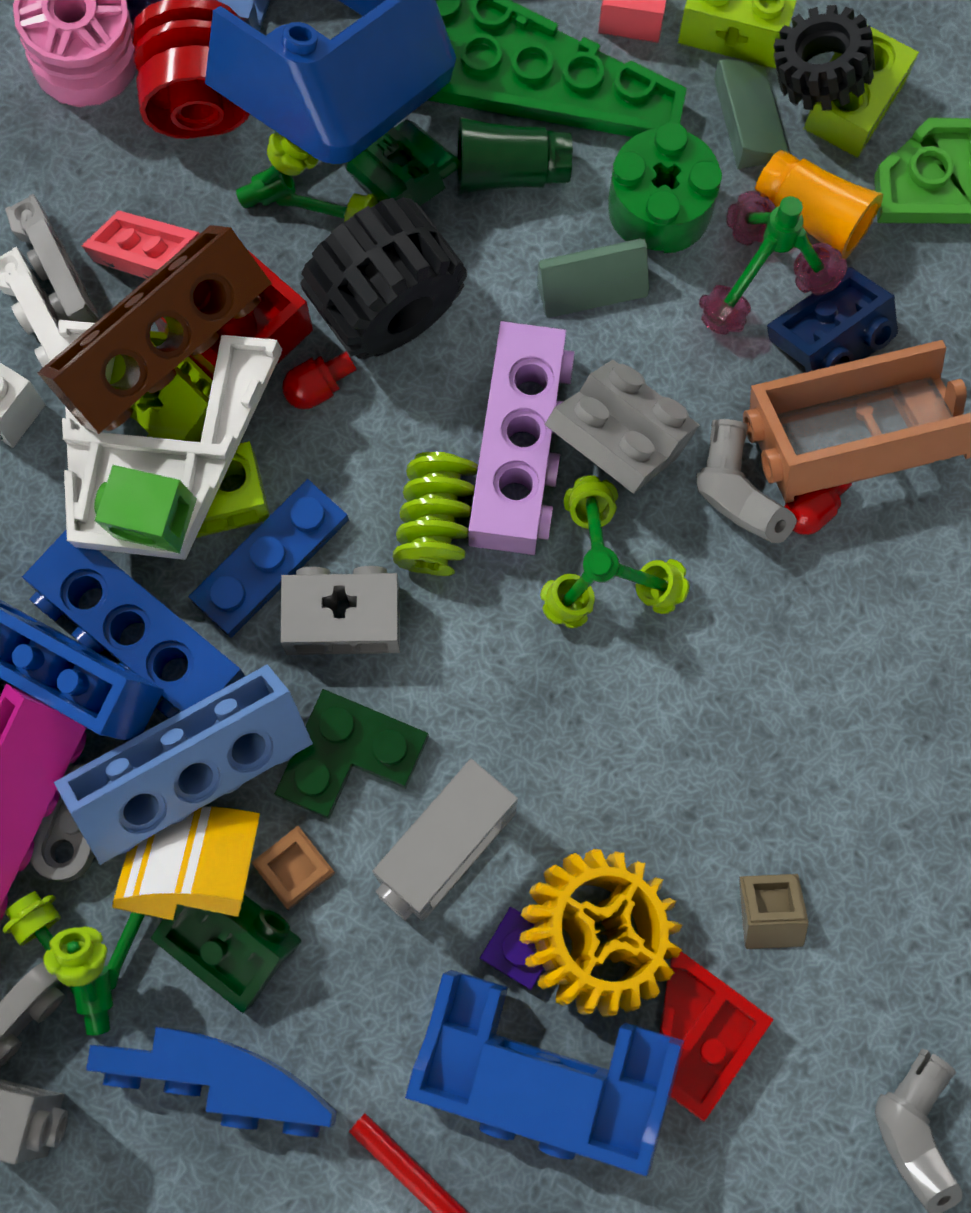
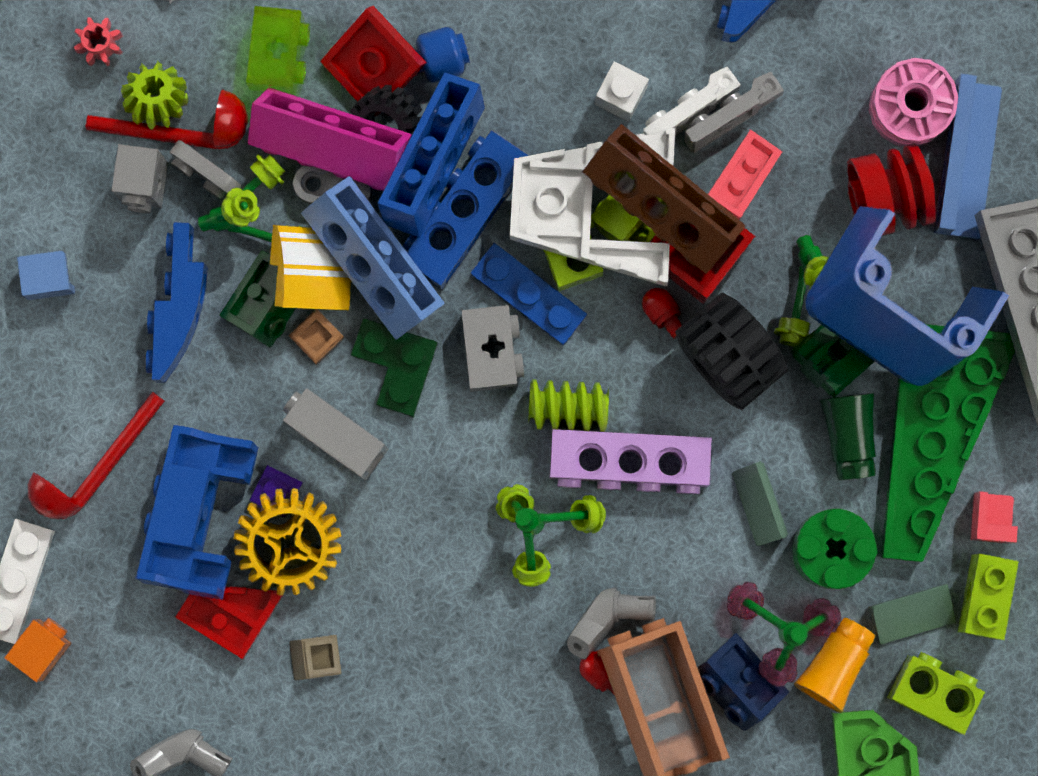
camera: 85 degrees right, 10 degrees up
(144, 508) = (533, 209): bright green brick -> none
(623, 425) = (642, 531): light grey plate -> none
(820, 35) = (959, 645): black tyre -> none

